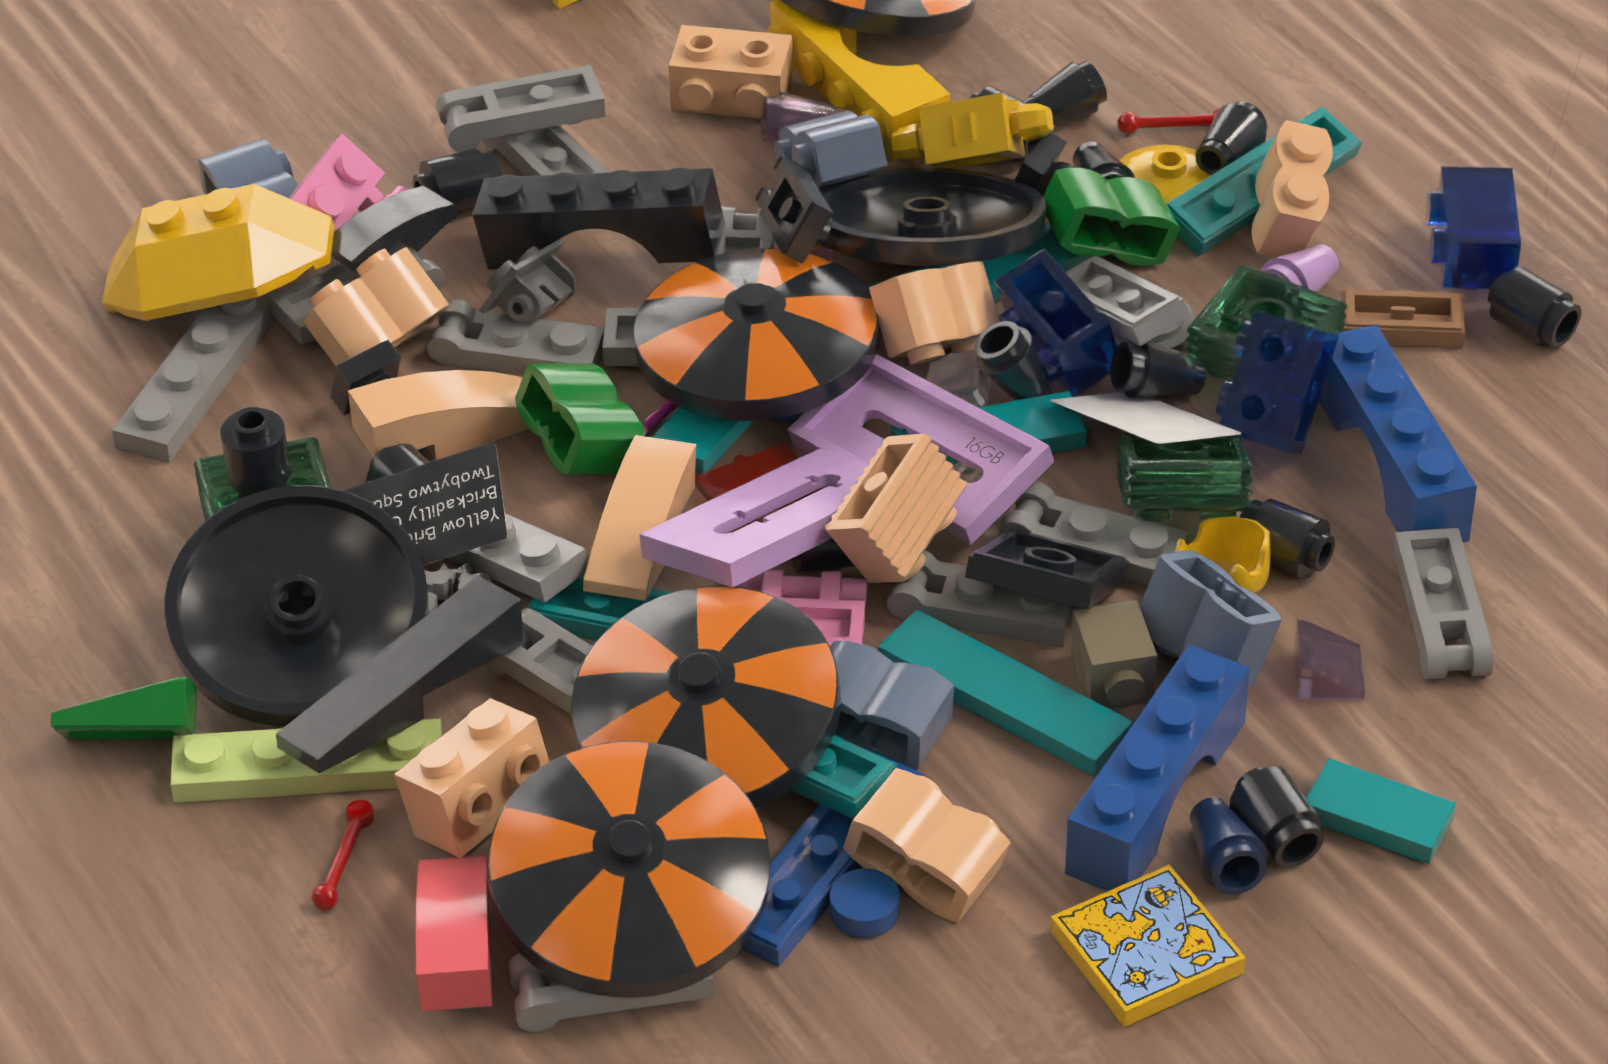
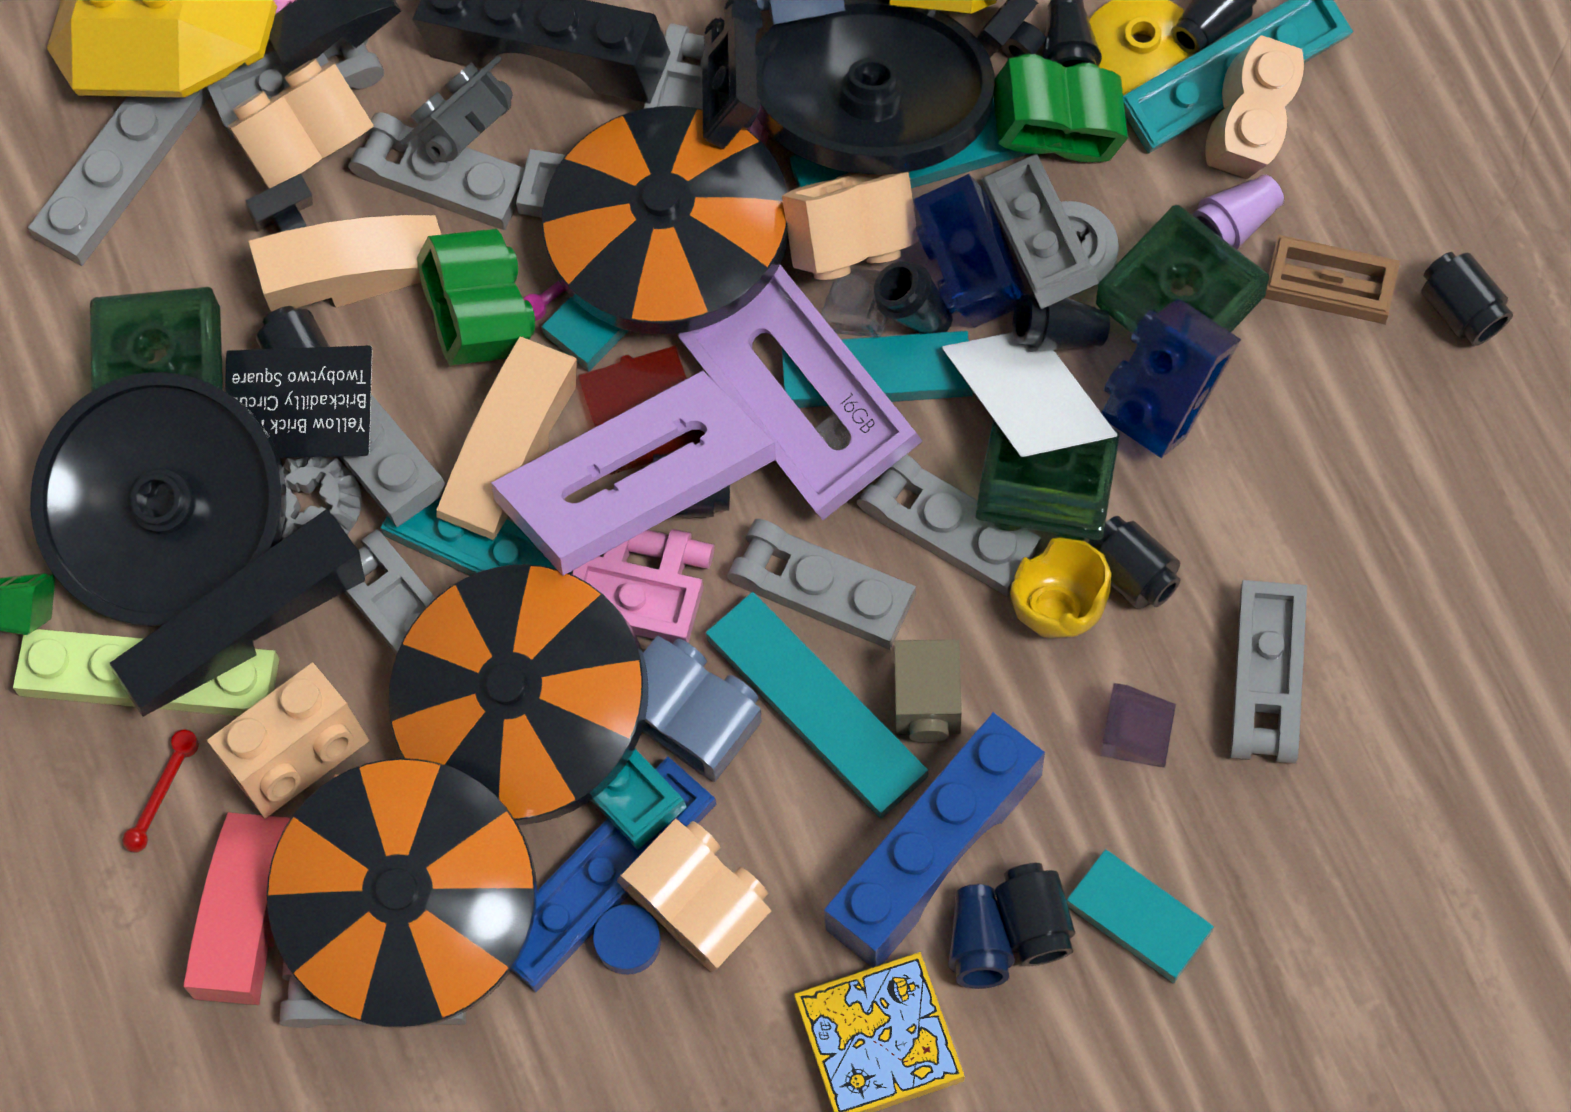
camera: 15 degrees right, 25 degrees up
(255, 451) = (137, 326): black brick -> none
(897, 508) = (746, 493): light nougat brick -> none
(1048, 568) = (885, 576): black tile -> none
(1203, 606) = (1019, 664): sand blue brick -> none
(1417, 464) = (1281, 474): blue arch -> none
(1475, 226) = (1434, 183): clear blue brick -> none

